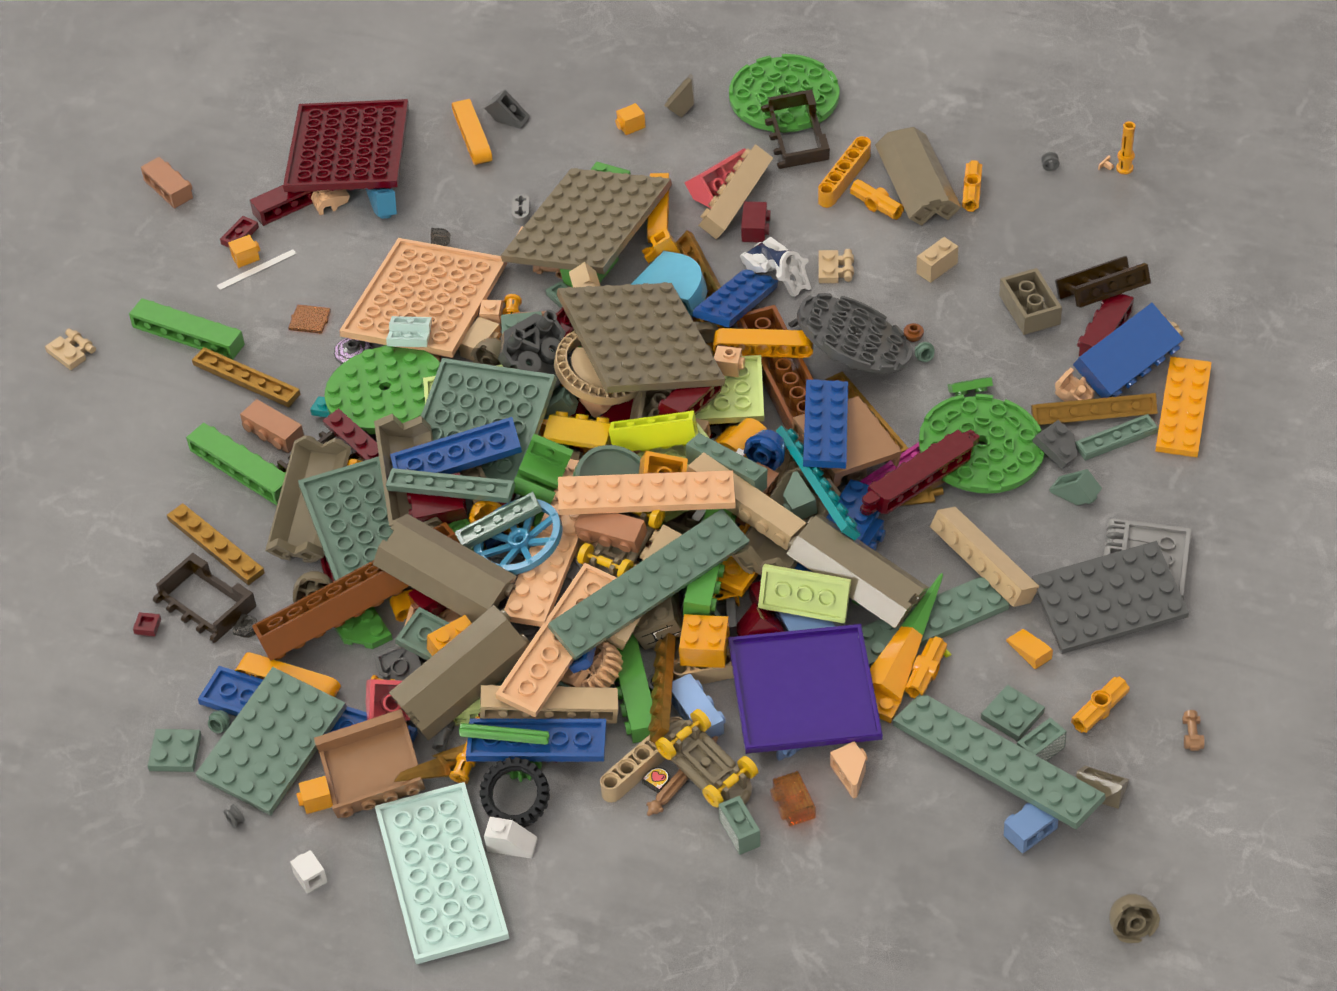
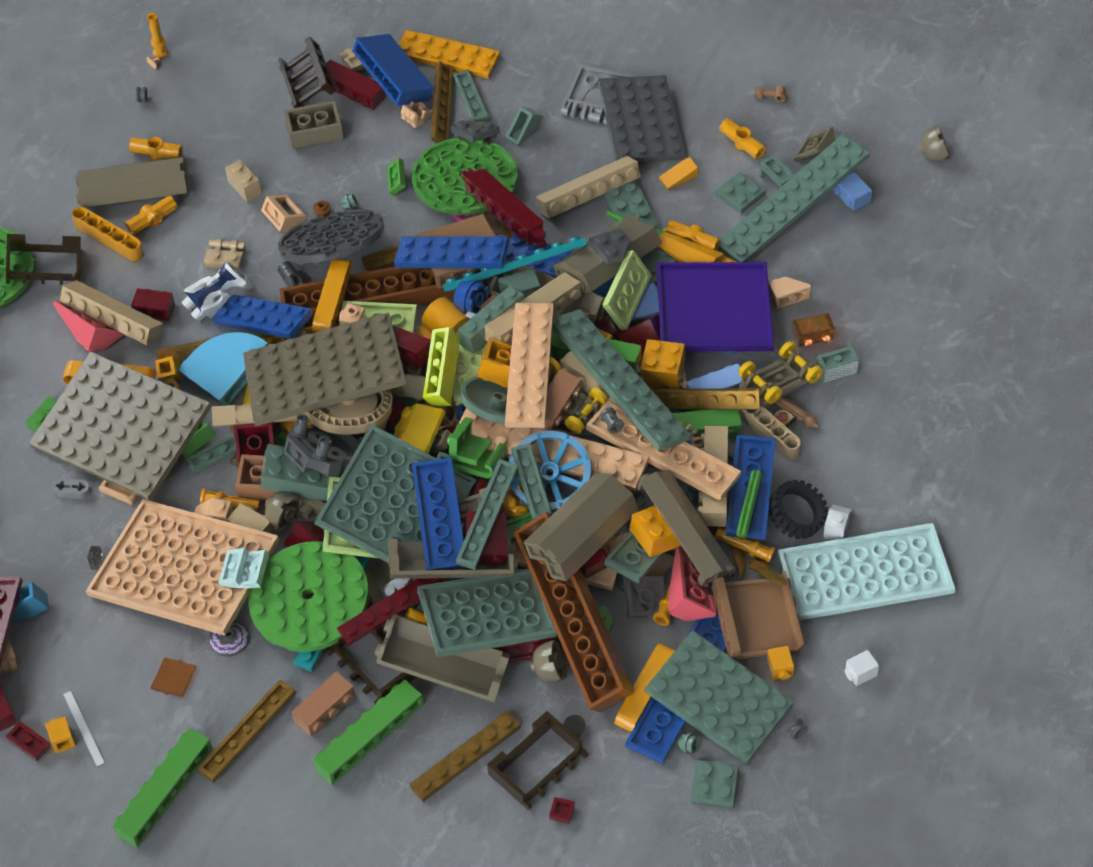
camera: 85 degrees left, 5 degrees up
(585, 579) = (611, 420): none -> dark grey bush
(852, 560) = (610, 246): none -> dark grey plate
(908, 287) = (278, 216): none -> light nougat tile

